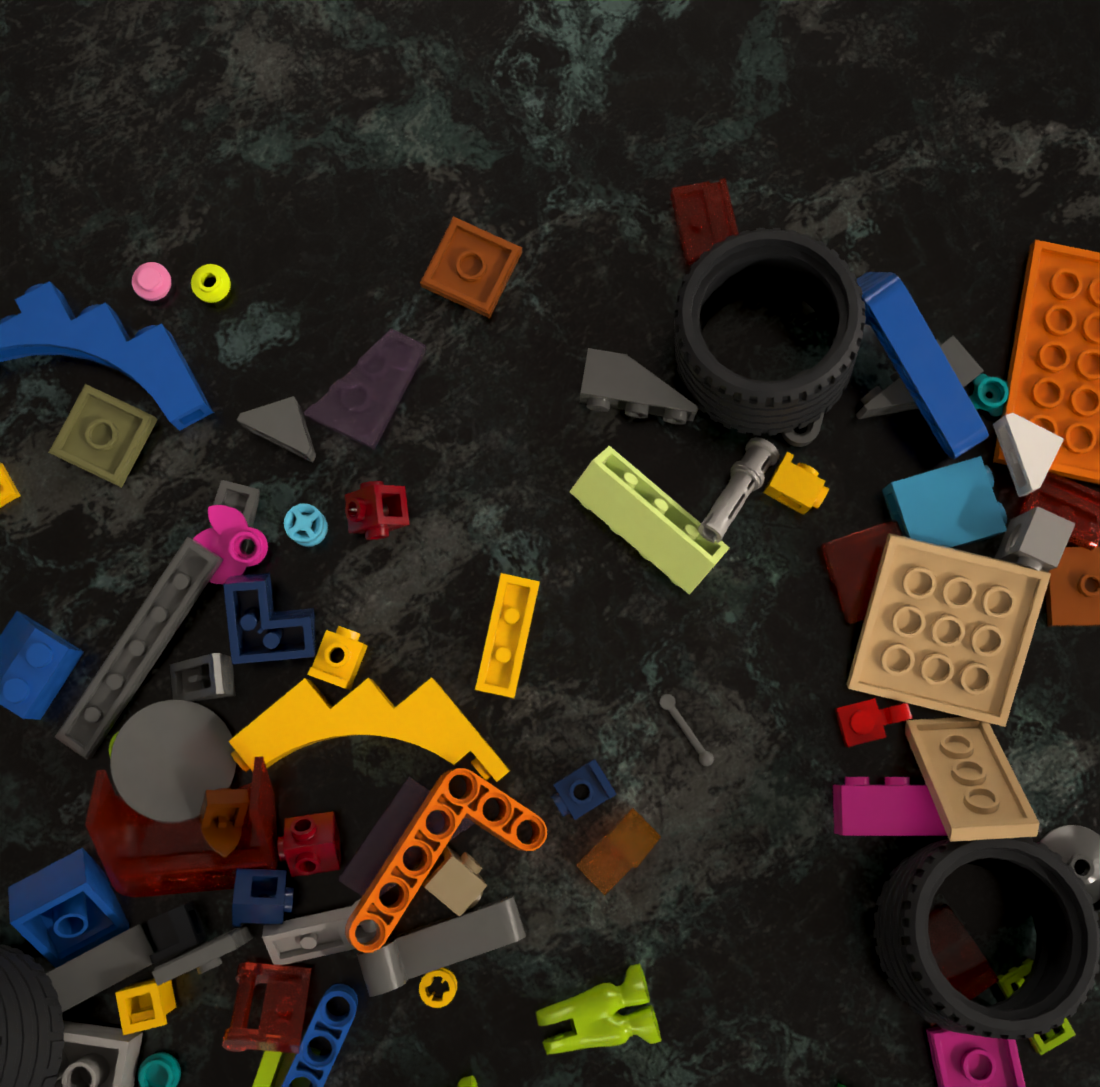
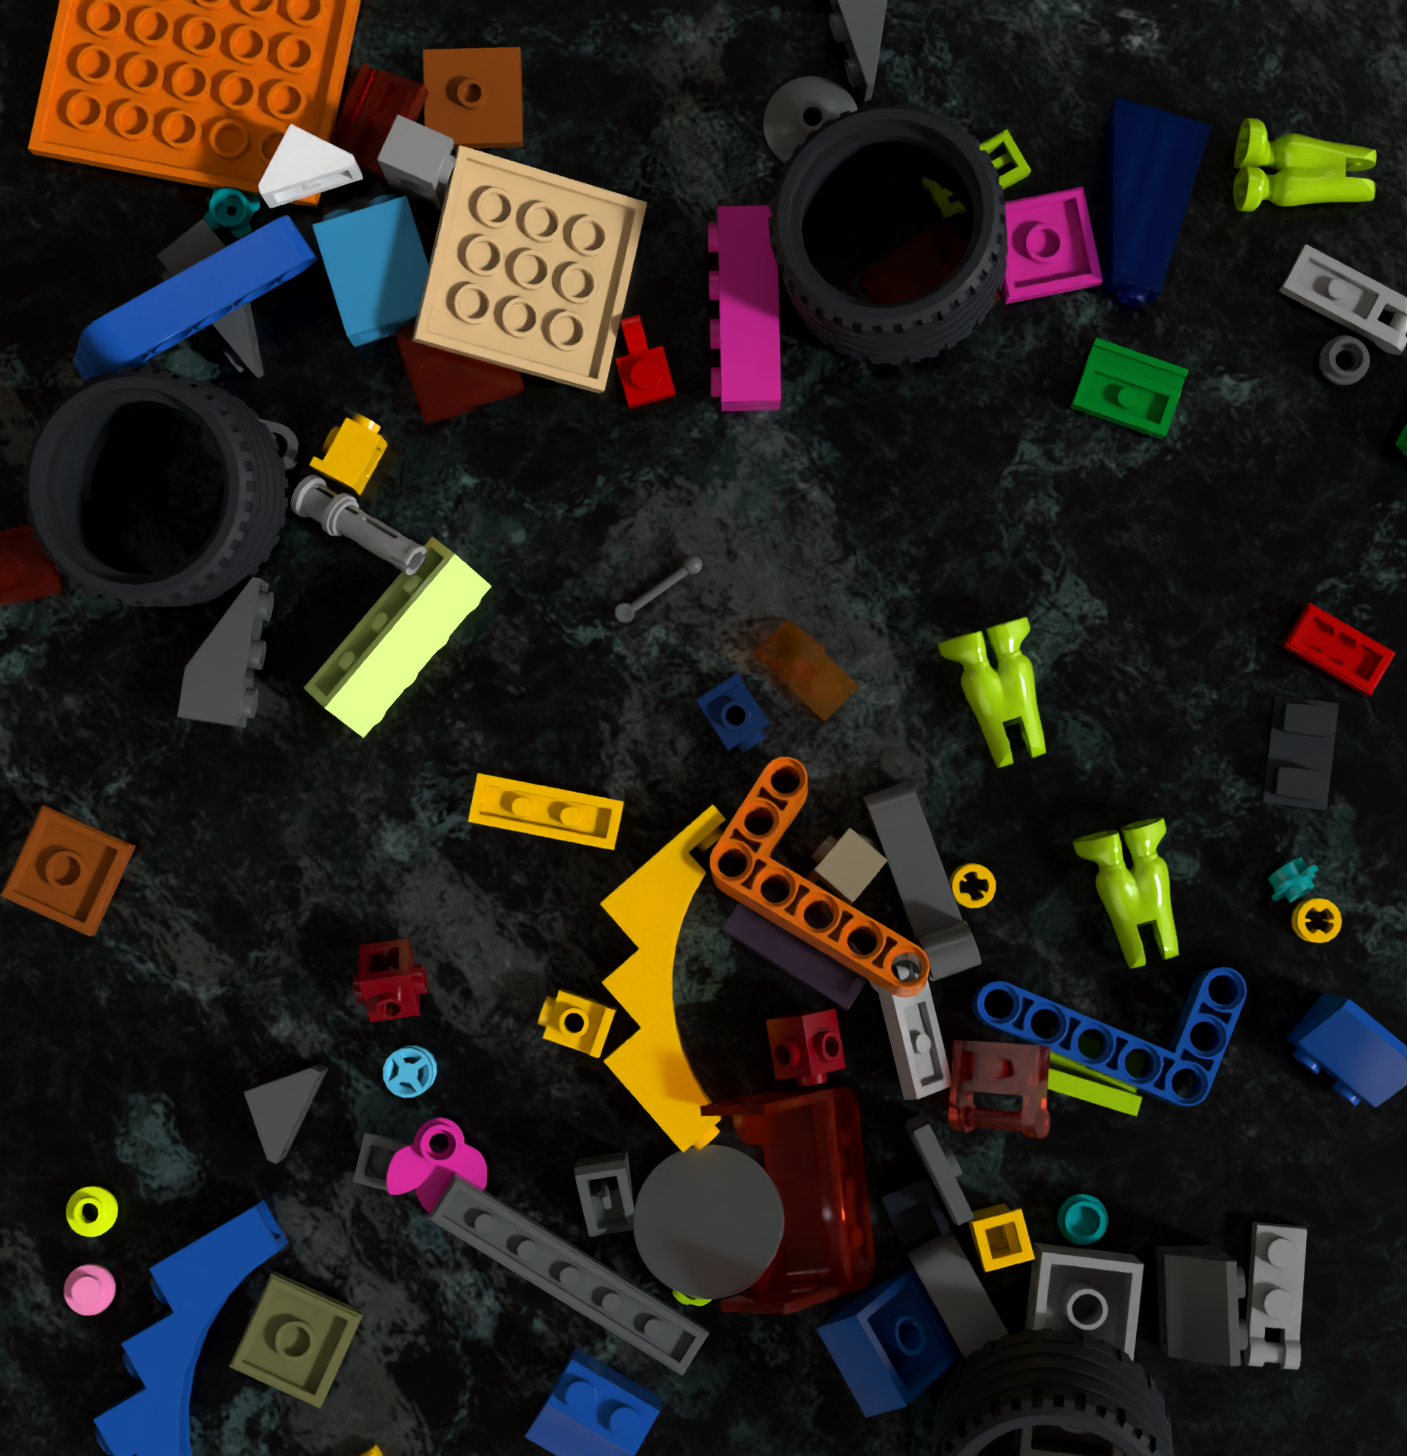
camera: 85 degrees left, 5 degrees up
(223, 818) = (776, 1154): reddish brown plate -> none
(257, 630) = (549, 1114): dark blue brick -> none
(260, 897) = (870, 1103): dark blue brick -> none
(370, 392) = (234, 995): clear purple wing -> none
(970, 779) = (709, 249): tan plate -> none

